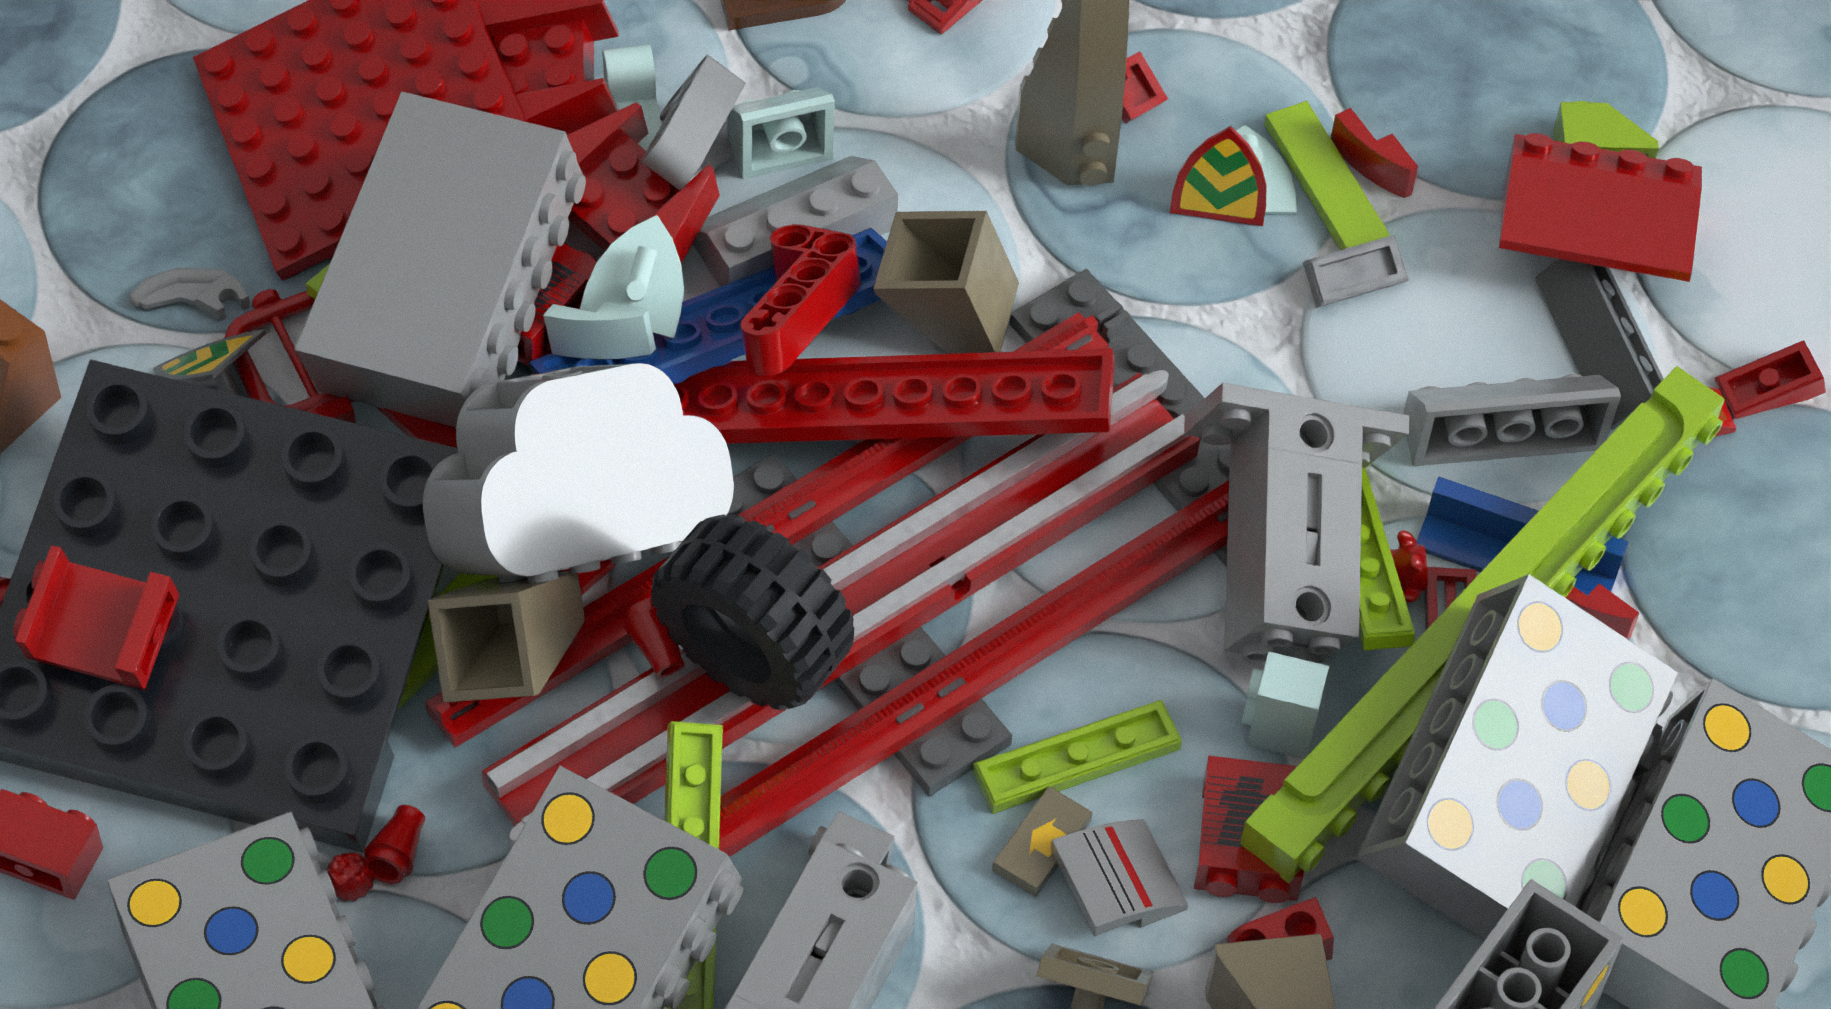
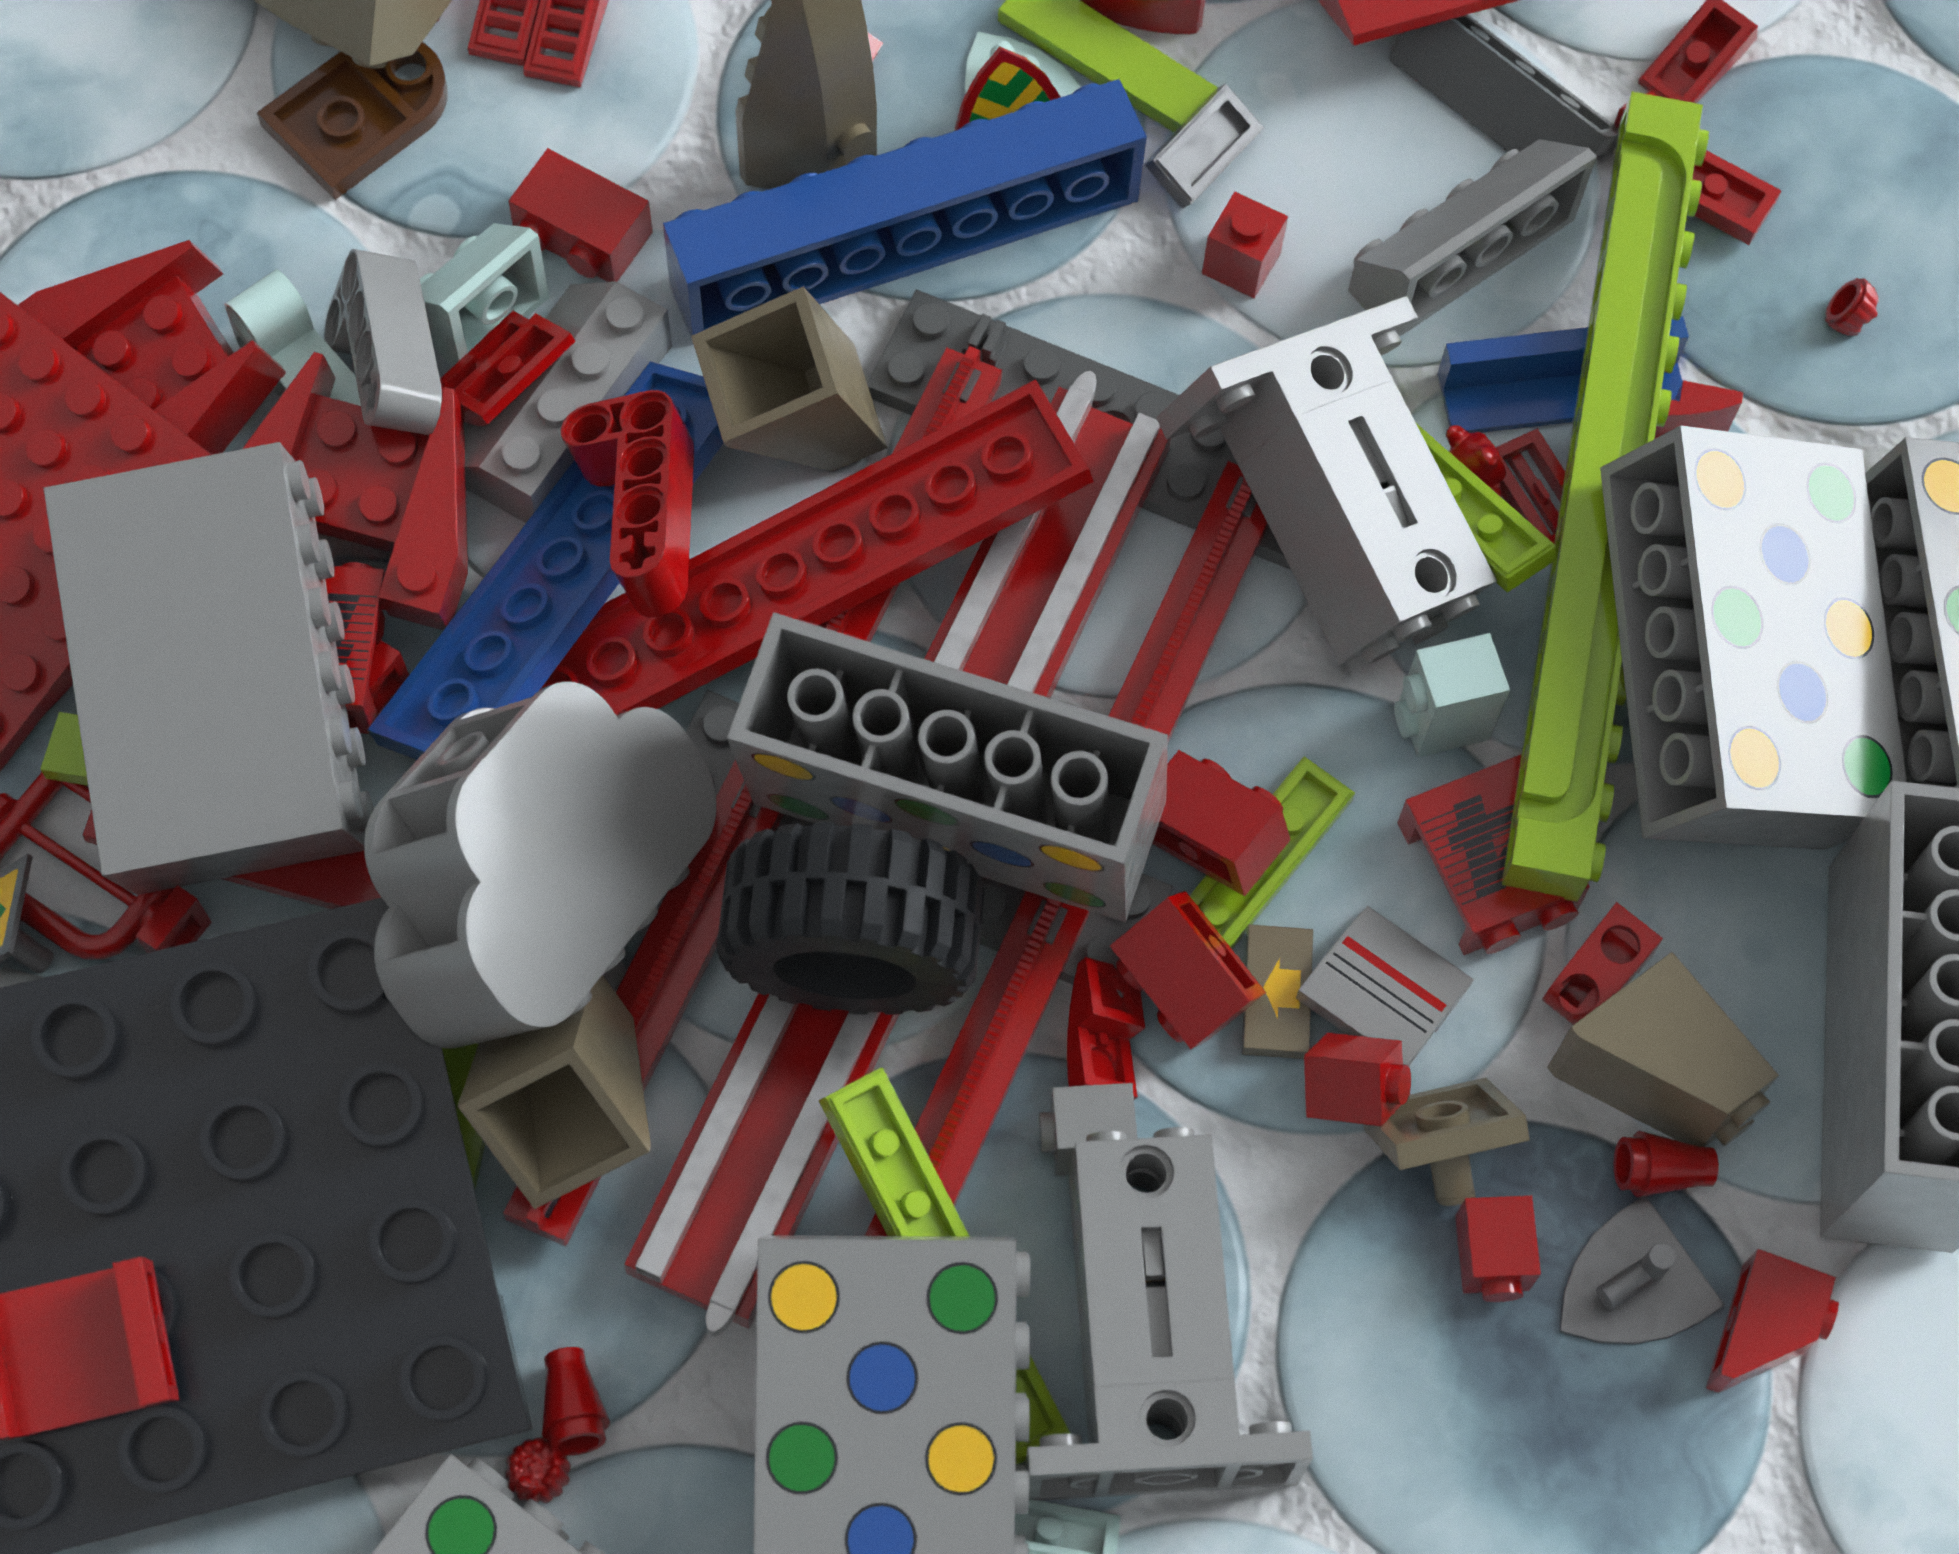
camera: 30 degrees left, 10 degrees up
(610, 333) = (451, 650): light aqua slope -> none
(642, 273) = (447, 570): light aqua shield -> none
(653, 639) = (729, 1001): red cone -> none
(765, 179) = (505, 365): none -> red slope
(883, 114) = (582, 216): none -> red brick
(905, 795) = (1102, 1026): none -> red slope
(908, 568) = (982, 767): none -> light grey brick
(981, 786) = (1186, 970): none -> red brick
(1052, 914) = (1355, 1079): none -> red brick
(1063, 703) = (1219, 823): none -> red brick
(1116, 209) = (909, 207): none -> blue brick
(1338, 347) = (1244, 244): none -> red brick
(1724, 481) = (1733, 198): none -> red plate
(1772, 604) = (1852, 307): none -> red piece

